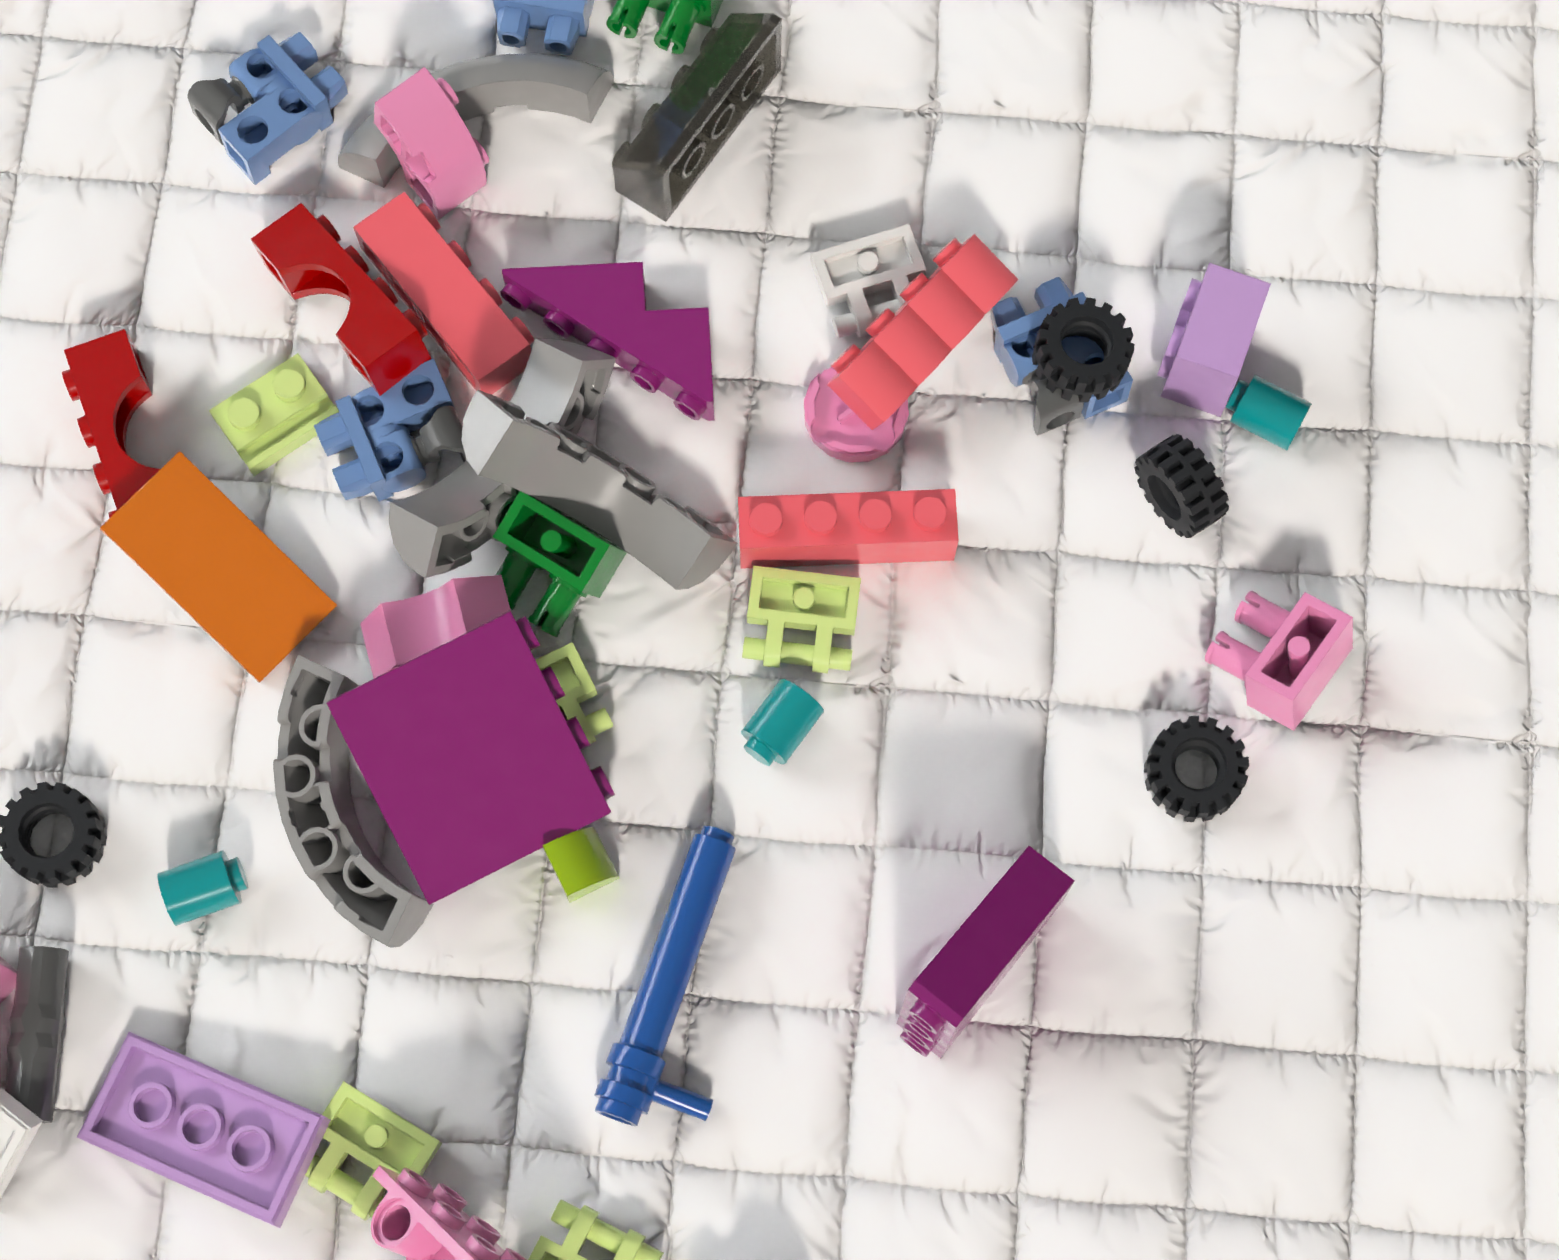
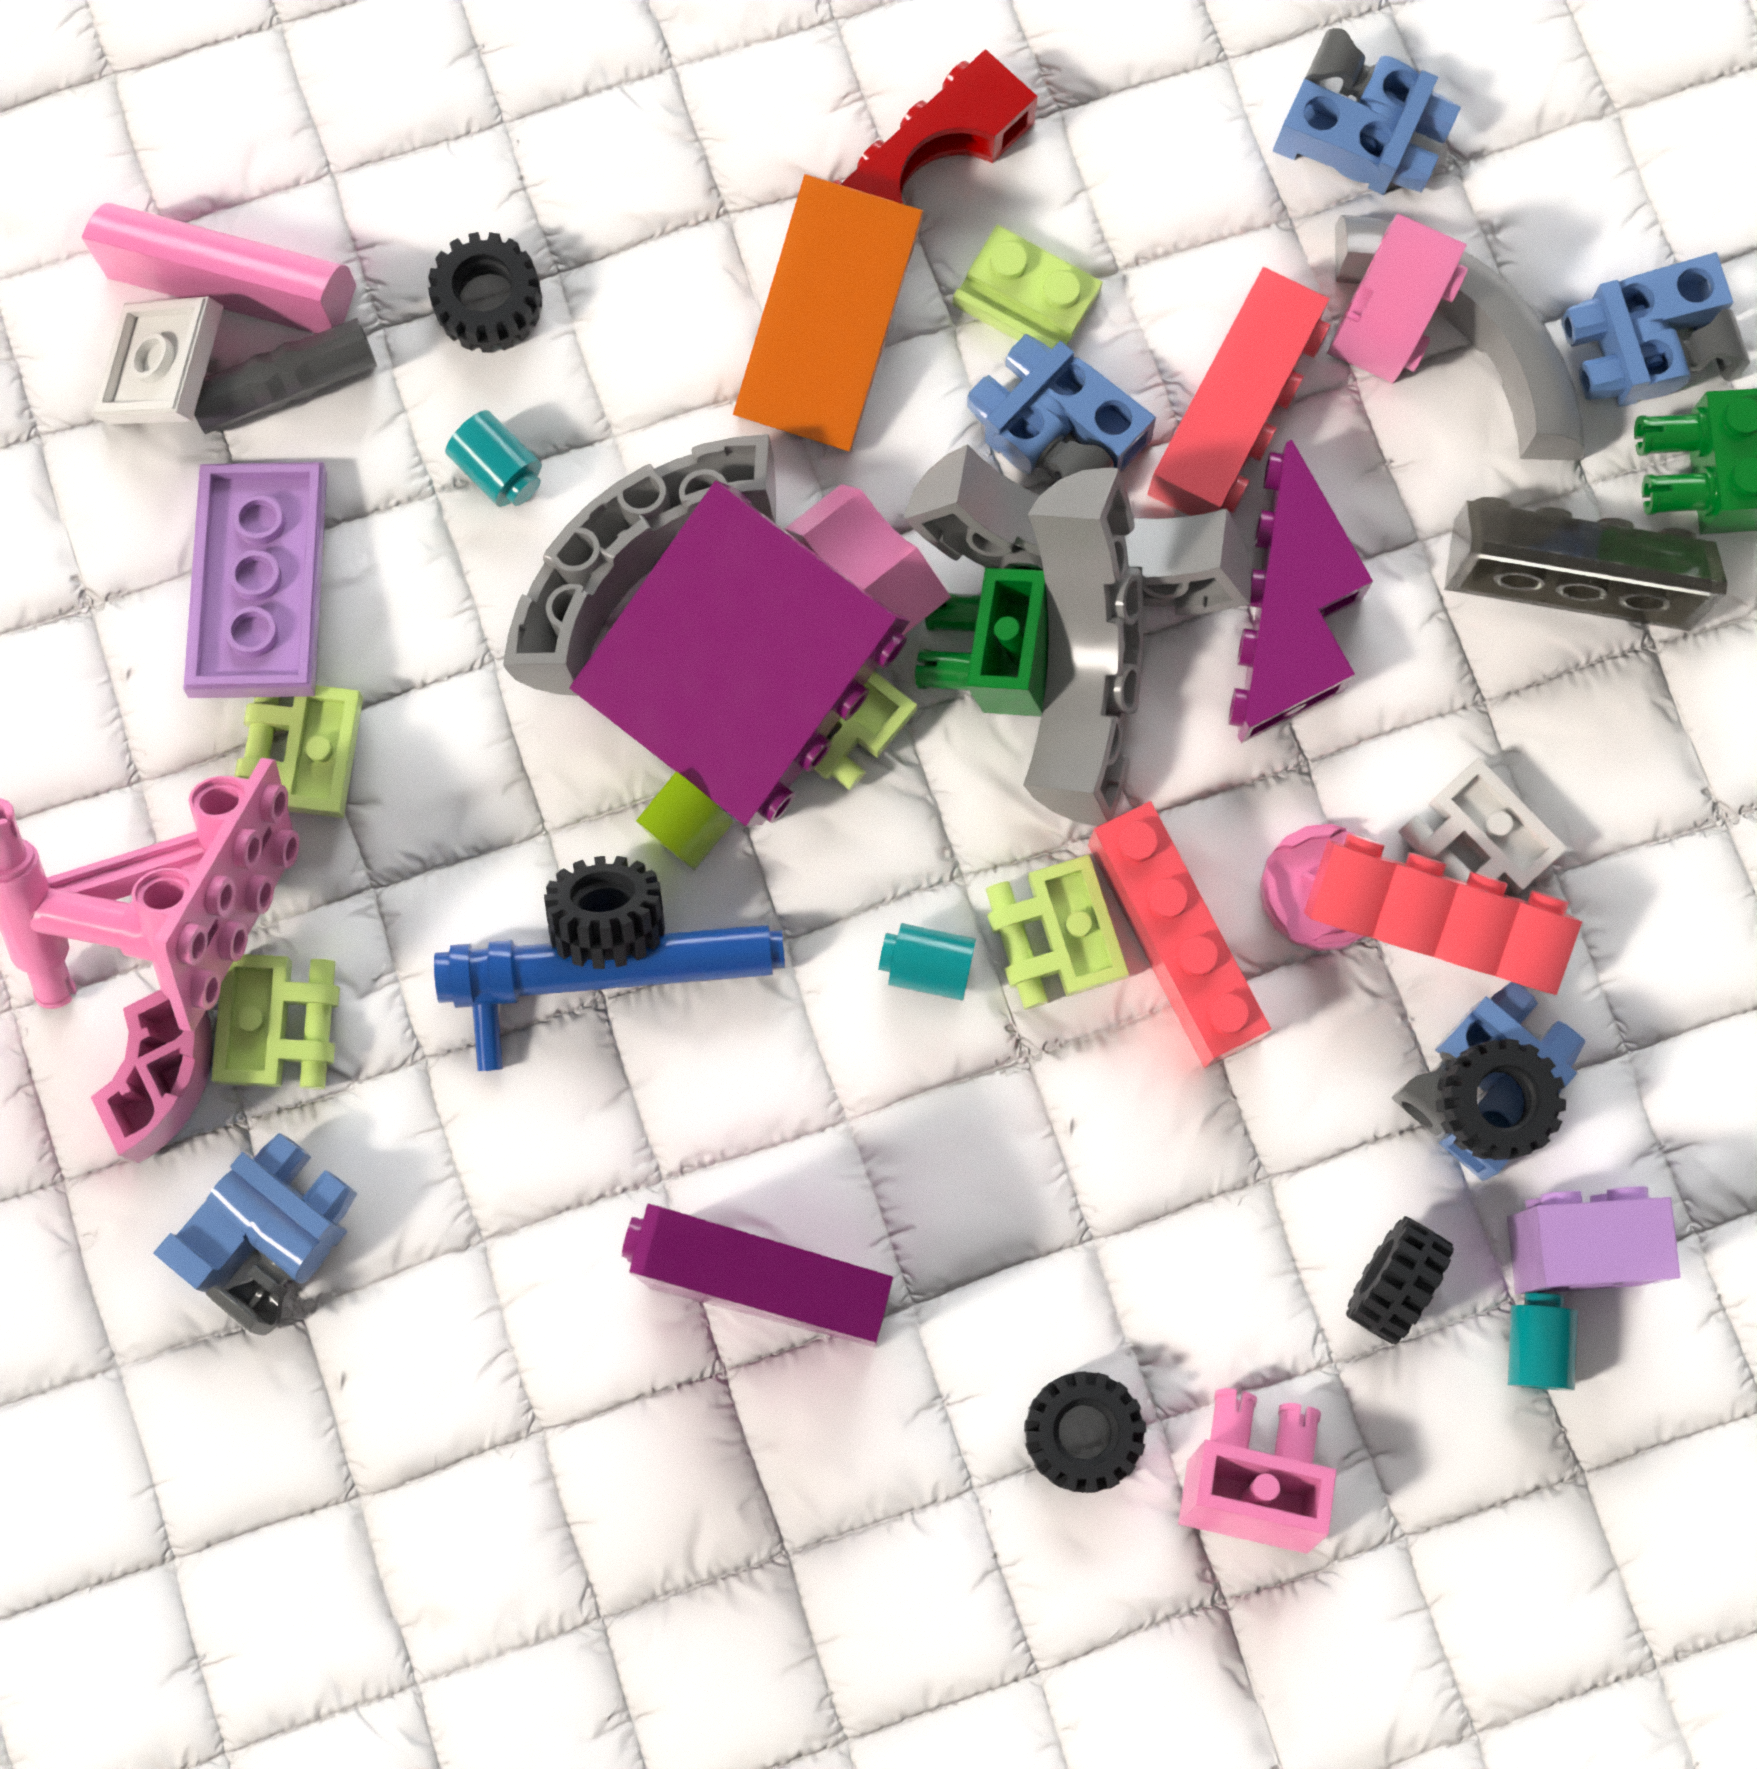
camera: 65 degrees right, 5 degrees up
(309, 261) = (1150, 342): red arch -> none
(647, 964) = (604, 912): none -> black tyre

